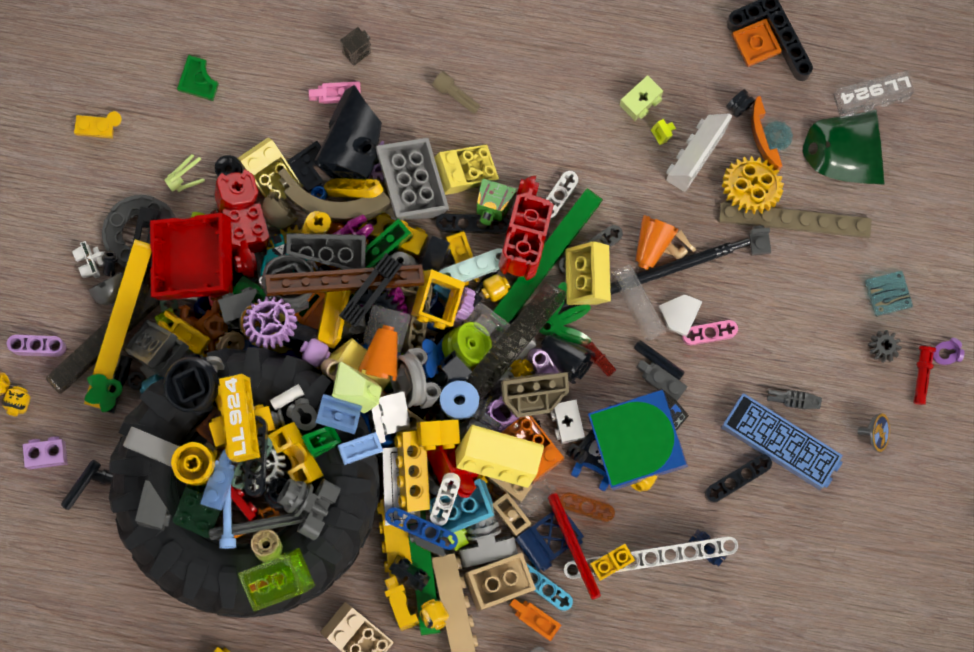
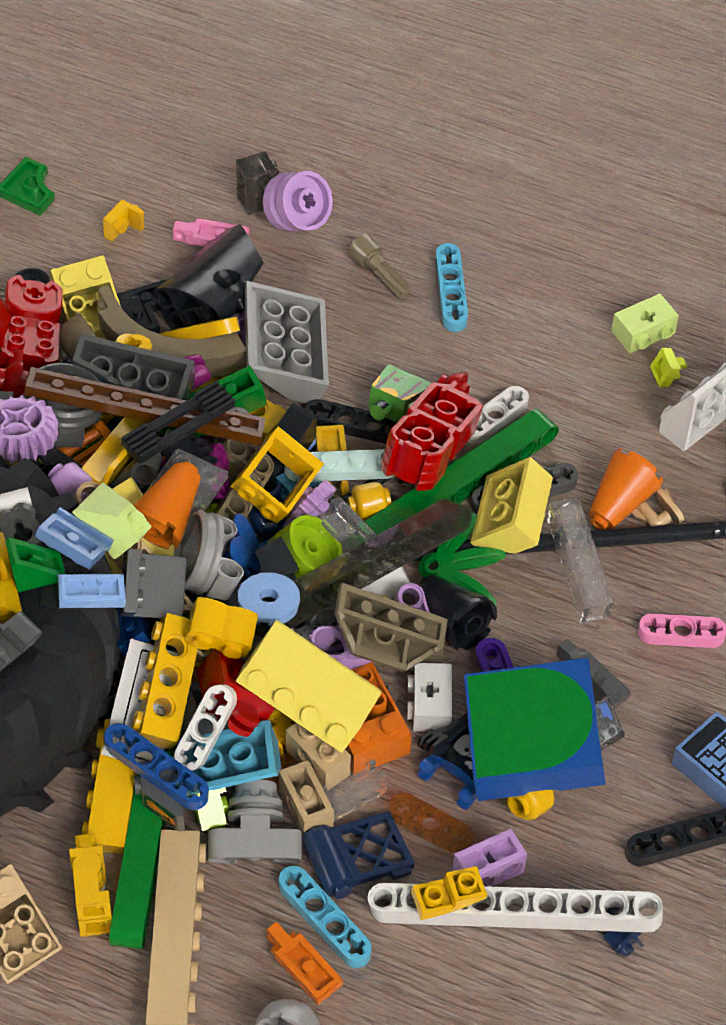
camera: 15 degrees right, 25 degrees down
(269, 98) = (120, 218): none -> yellow bracket
(388, 58) = (297, 201): none -> lavender wheel
(417, 577) = (109, 827): black hinge -> none
(434, 614) = (138, 904): yellow head -> none
(465, 168) = (362, 352): light yellow slope -> none
(499, 582) = (258, 891): tan slope -> none
(506, 96) = (451, 287): none -> medium azure beam
(574, 546) = (394, 863): red axle -> none
(601, 360) = (504, 630): clear red axle -> none
(602, 388) = (495, 648): none -> dark purple plate
(629, 529) = (496, 858): none -> lavender brick
(658, 359) = (587, 641): black axle -> none
(680, 313) = (642, 593): white slope -> none

